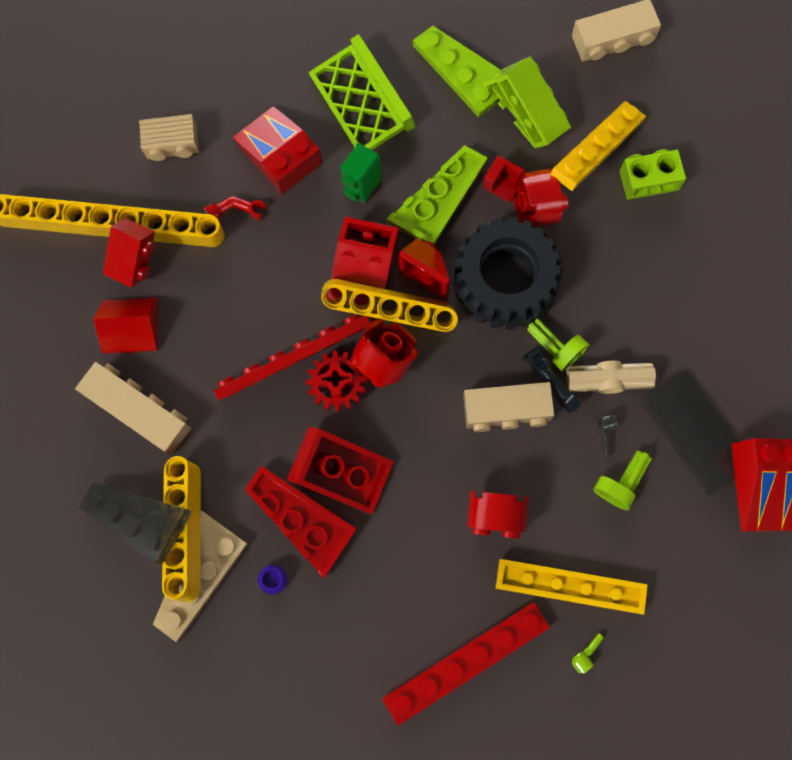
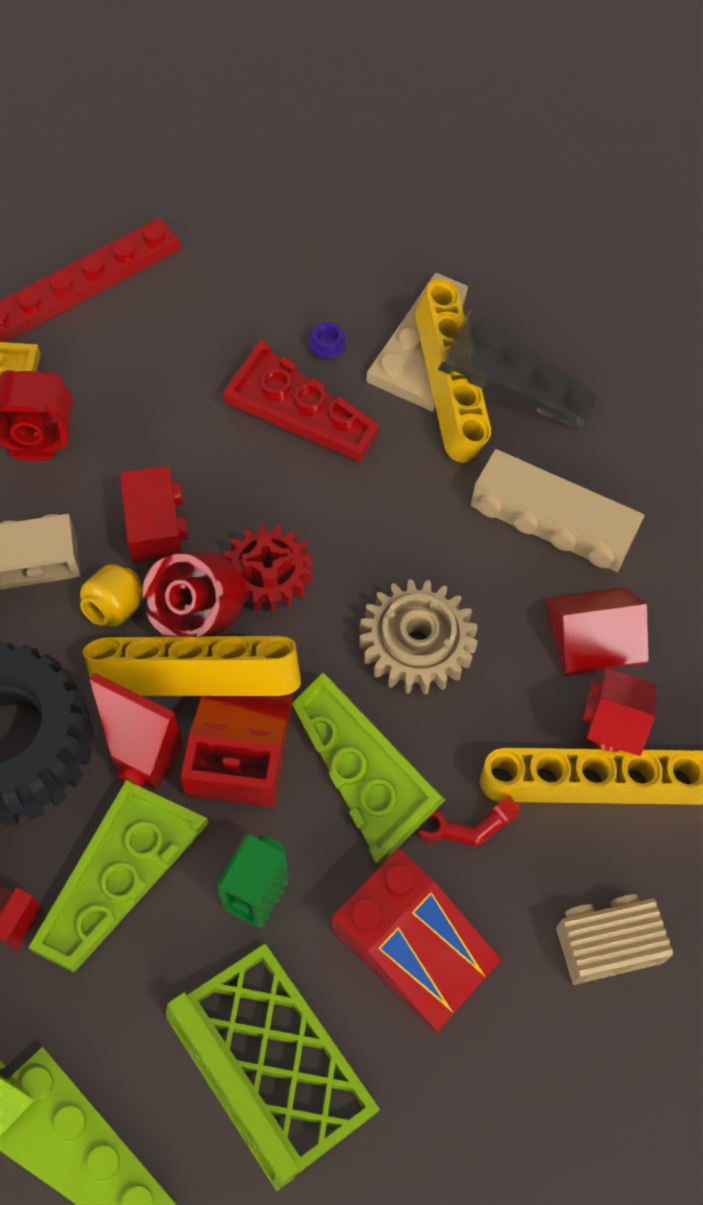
camera: 165 degrees right, 15 degrees down
(256, 335) = (413, 660): none -> tan gear
(282, 361) = (349, 584): red plate -> none
(285, 235) = (375, 779): none -> lime wing
(340, 470) = (255, 458): red slope -> none
(411, 424) = (151, 514): none -> red brick
(440, 368) = (111, 595): none -> yellow head

